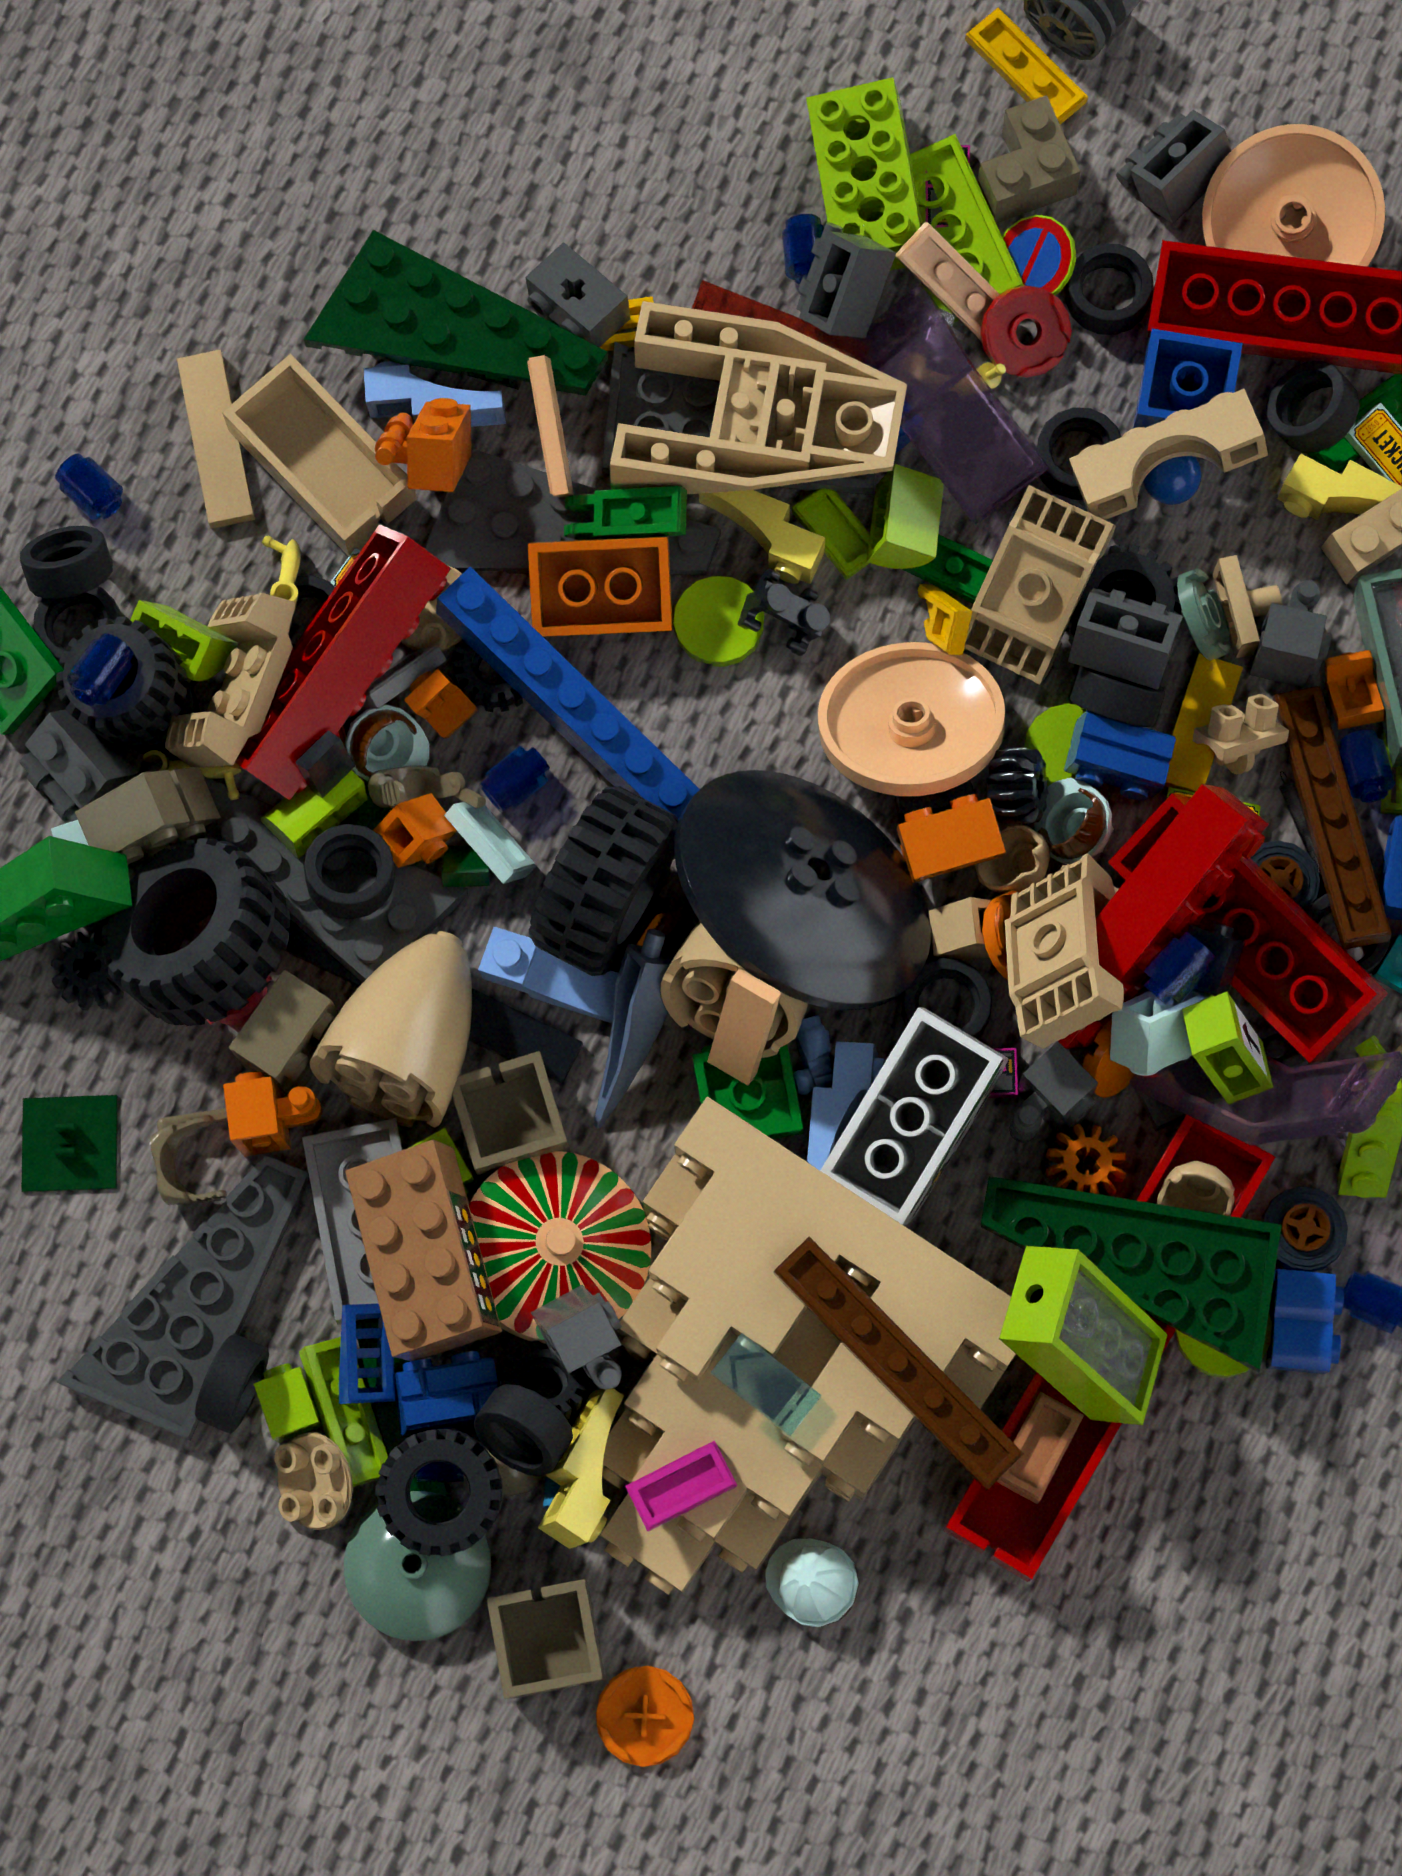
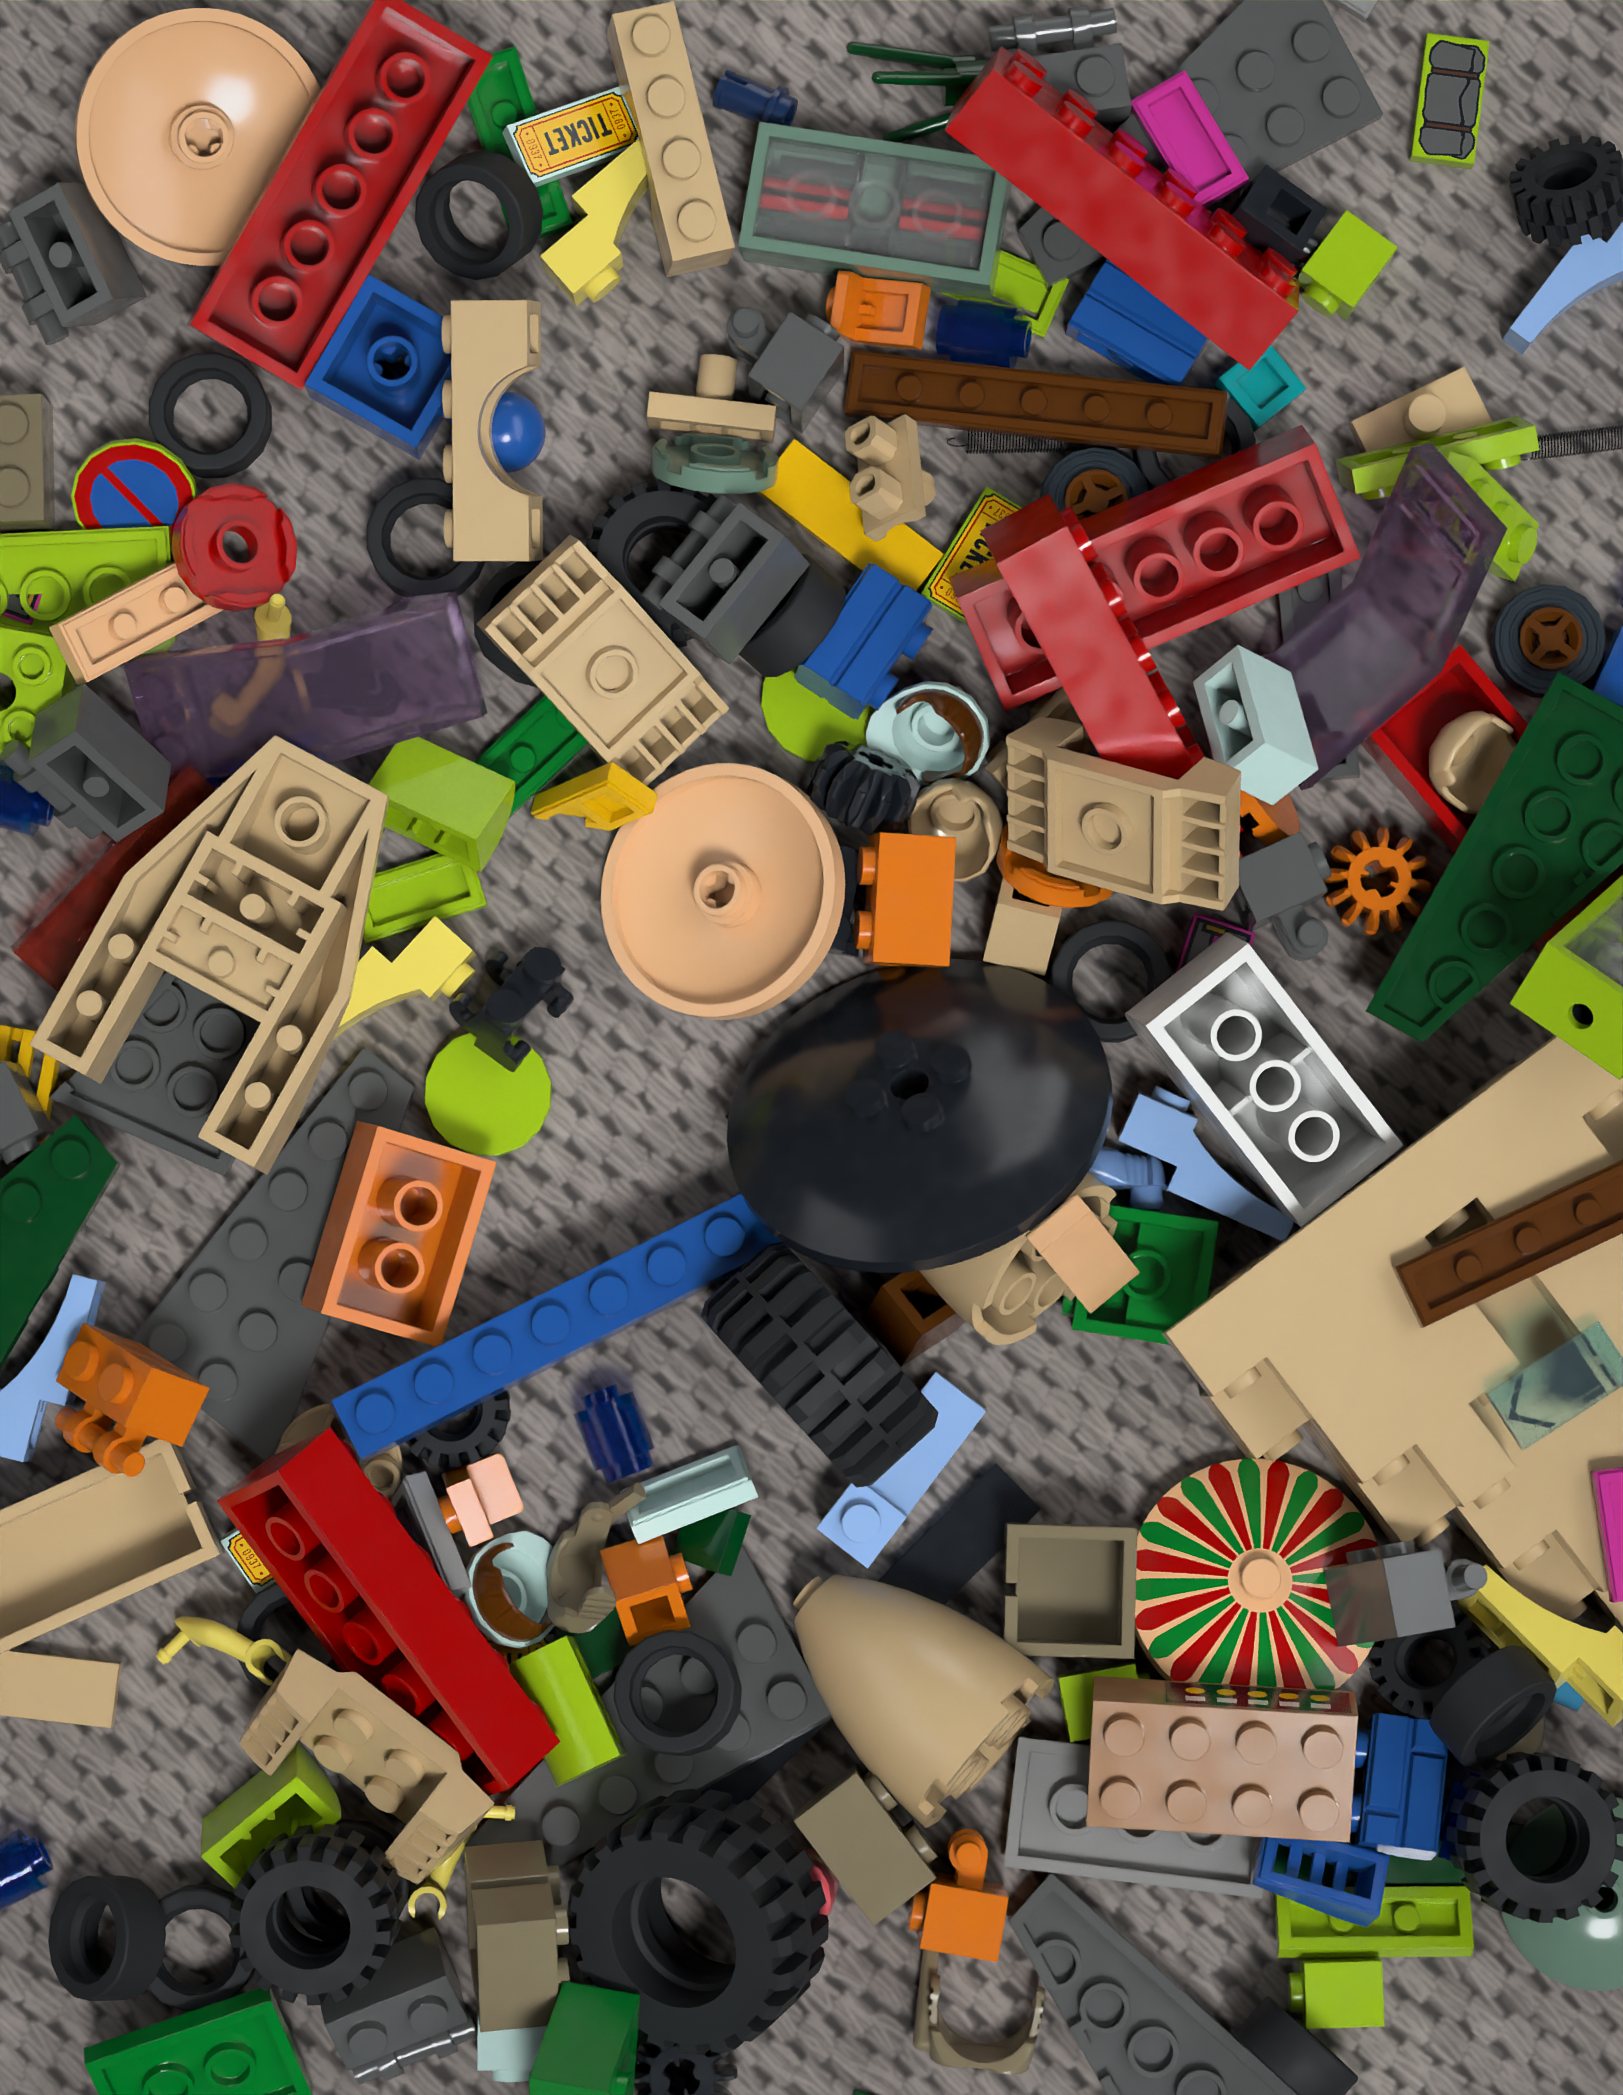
camera: 75 degrees left, 10 degrees up
(100, 670) = (309, 1939): clear blue brick -> none
(313, 1481) = (1449, 1990): tan dish -> none
(325, 764) = (530, 1679): black tile -> none
(550, 426) = (159, 1227): light nougat tile -> none
(630, 513) = (315, 1160): green hinge -> none
(636, 1018) = (1002, 1385): sand blue piece -> none
(1178, 968) = (1201, 679): clear blue brick -> none
(1227, 951) = (1188, 633): black brick -> none
(1227, 1048) = (1314, 654): lime brick -> none

